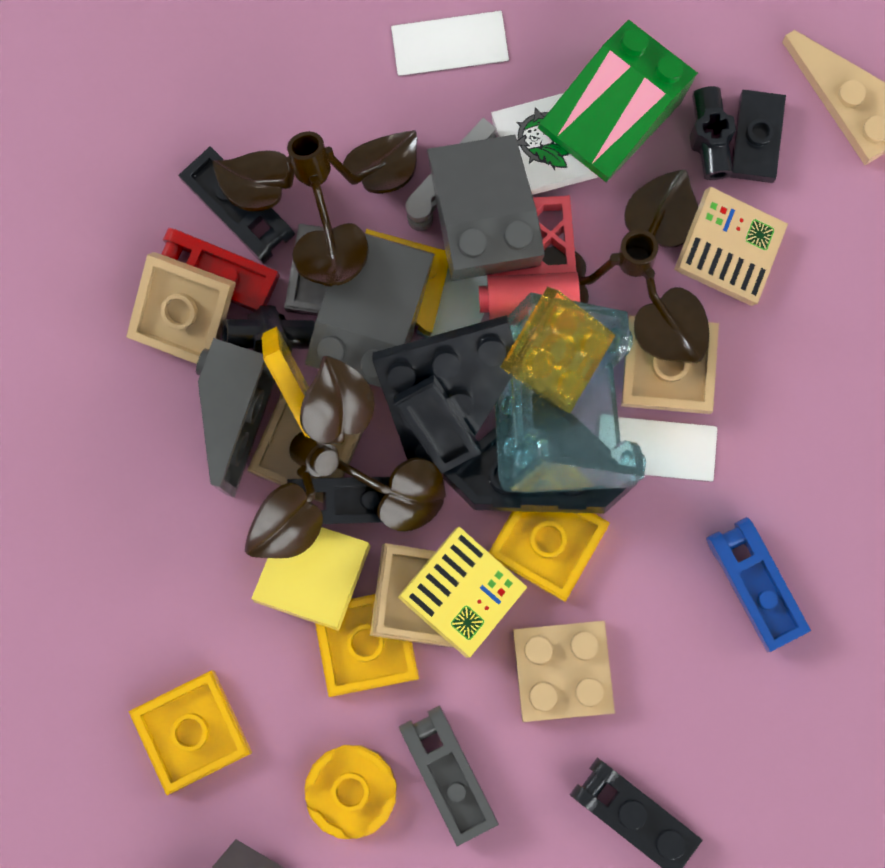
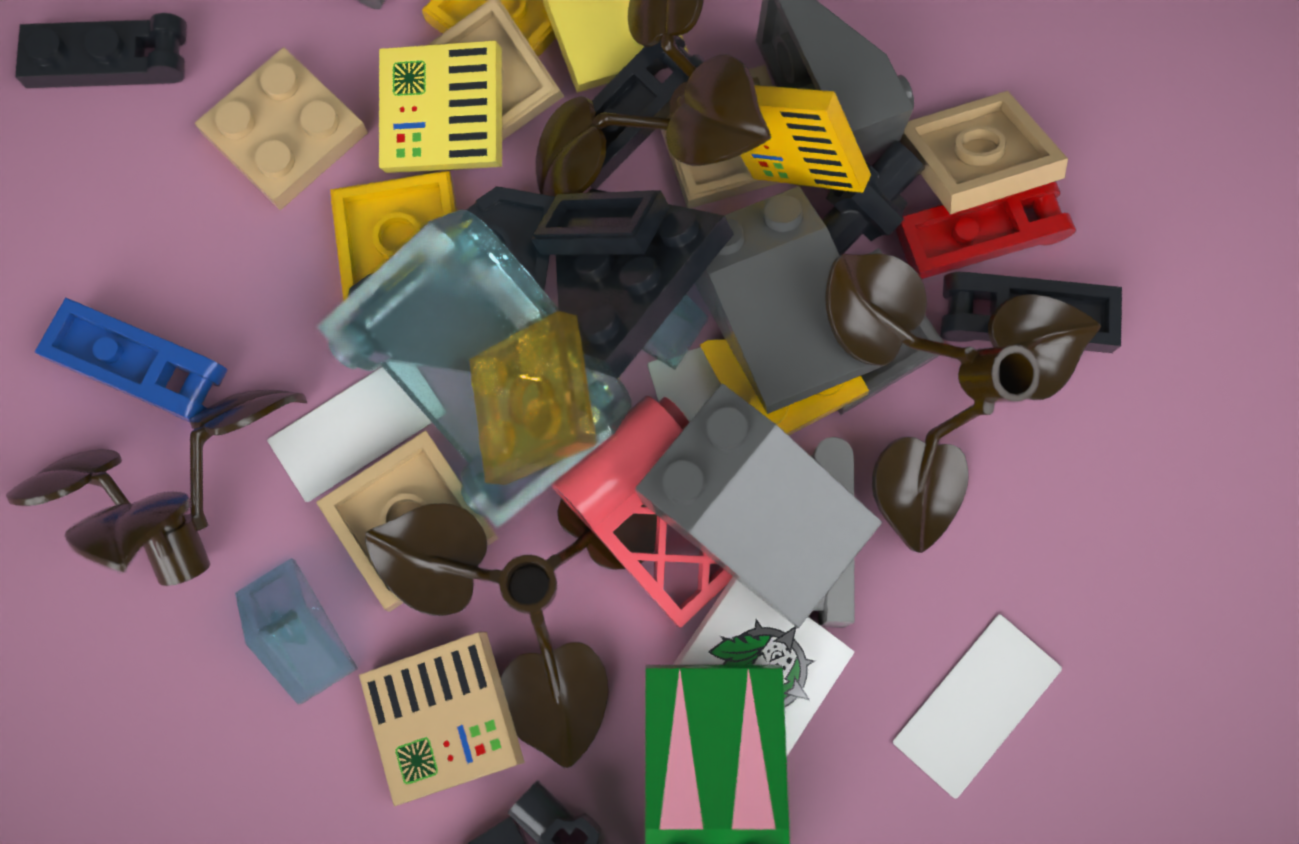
camera: 130 degrees right, 5 degrees down
(776, 359) = (292, 632): none -> clear light blue slope
(815, 439) = (159, 520): none -> dark brown plant

